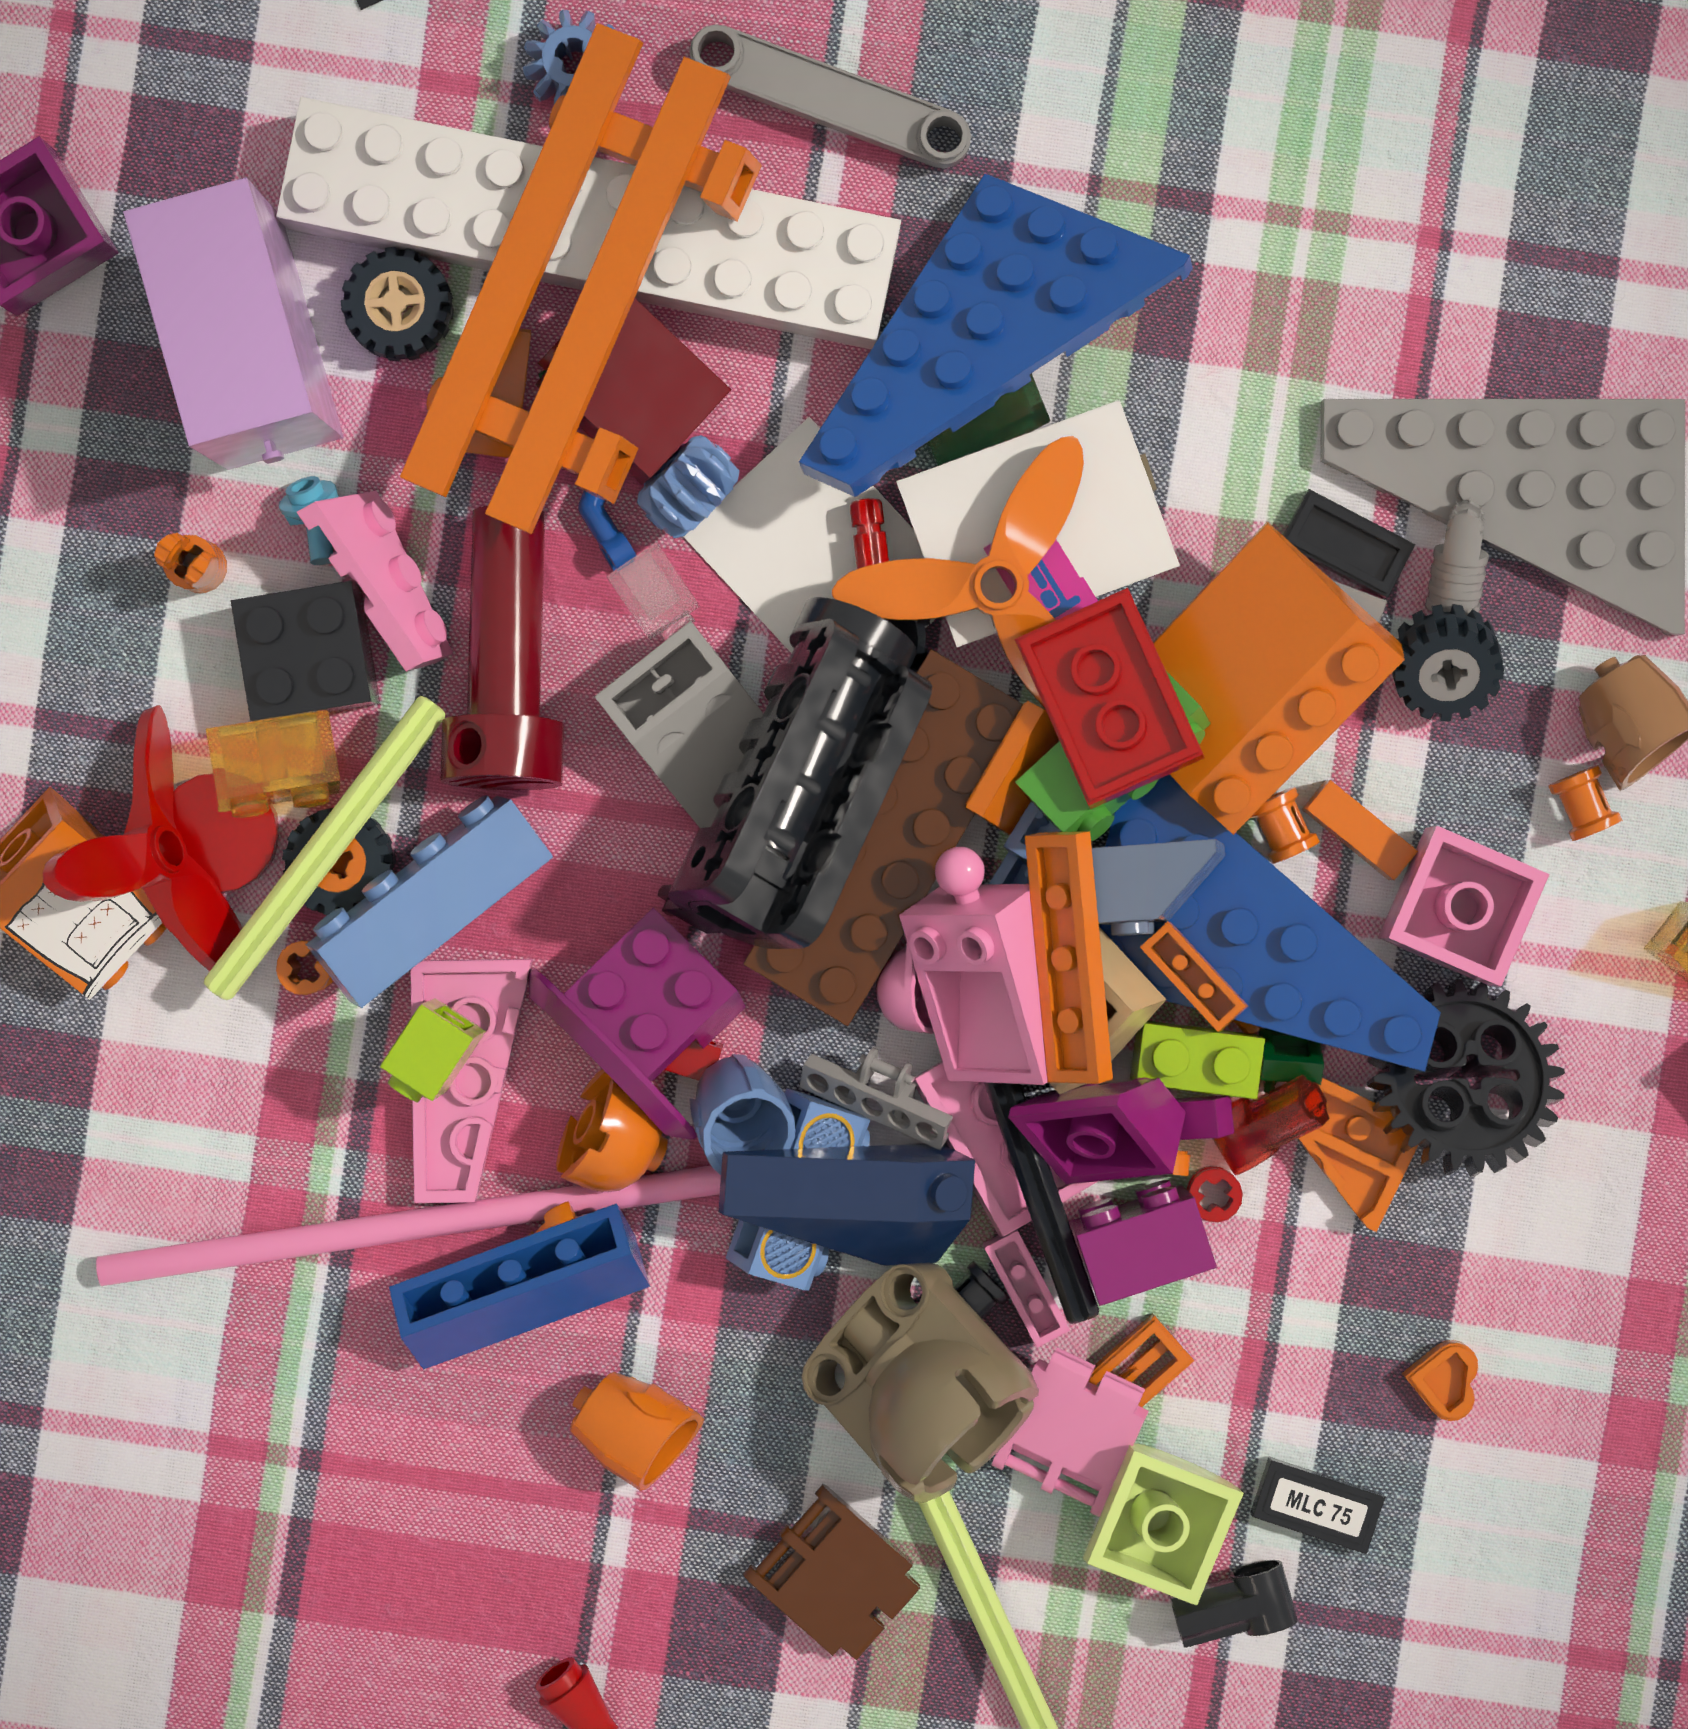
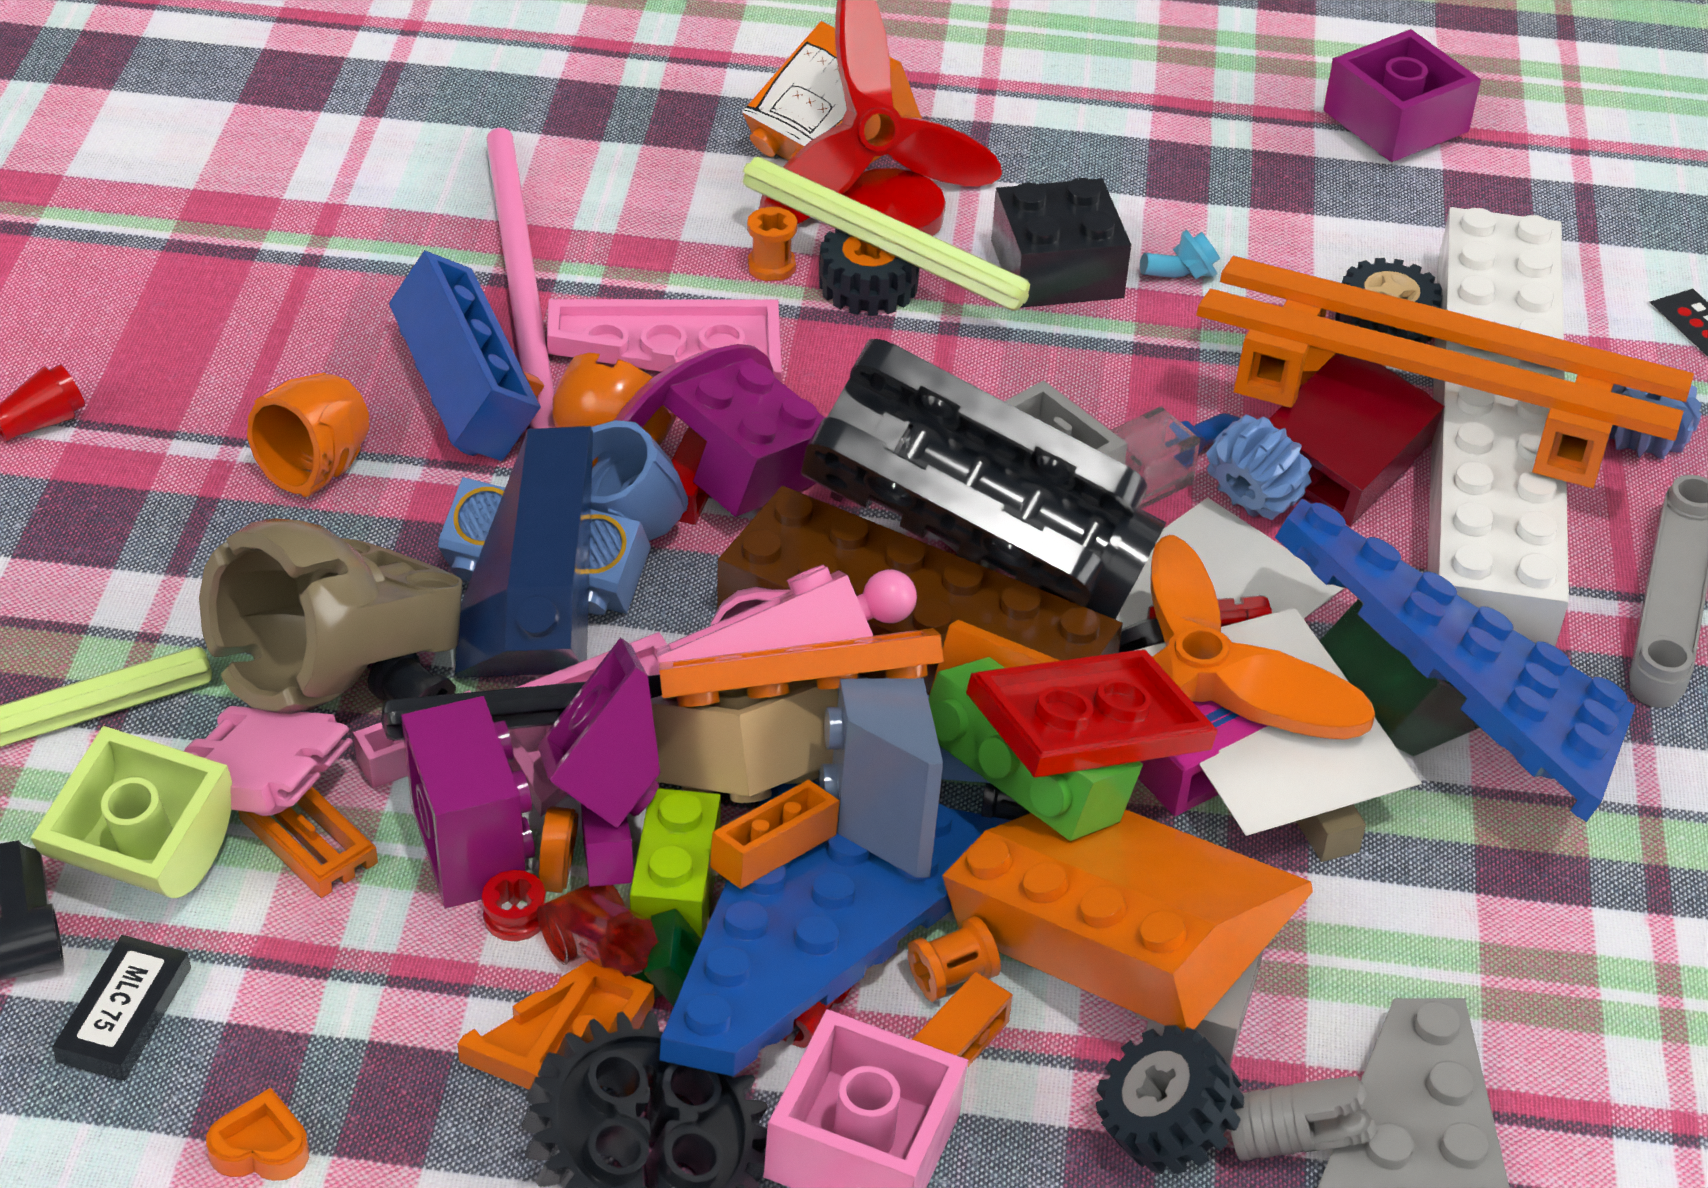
camera: 90 degrees right, 45 degrees down
(203, 573) = (1133, 171): orange hinge -> none
(233, 325) = (1348, 154): lavender container -> none
(273, 763) = (960, 205): clear yellow brick -> none
(373, 555) = (1140, 280): bright pink wing -> none
(428, 899) = (831, 279): medium blue brick -> none
(431, 1051) = (698, 269): lime brick -> none
(502, 736) = (998, 340): dark red piece -> none
(836, 1576) = (120, 587): reddish brown plate -> none
(910, 1114) = (646, 607): light grey piece -> none
(1348, 544) = (1295, 1029): black tile -> none

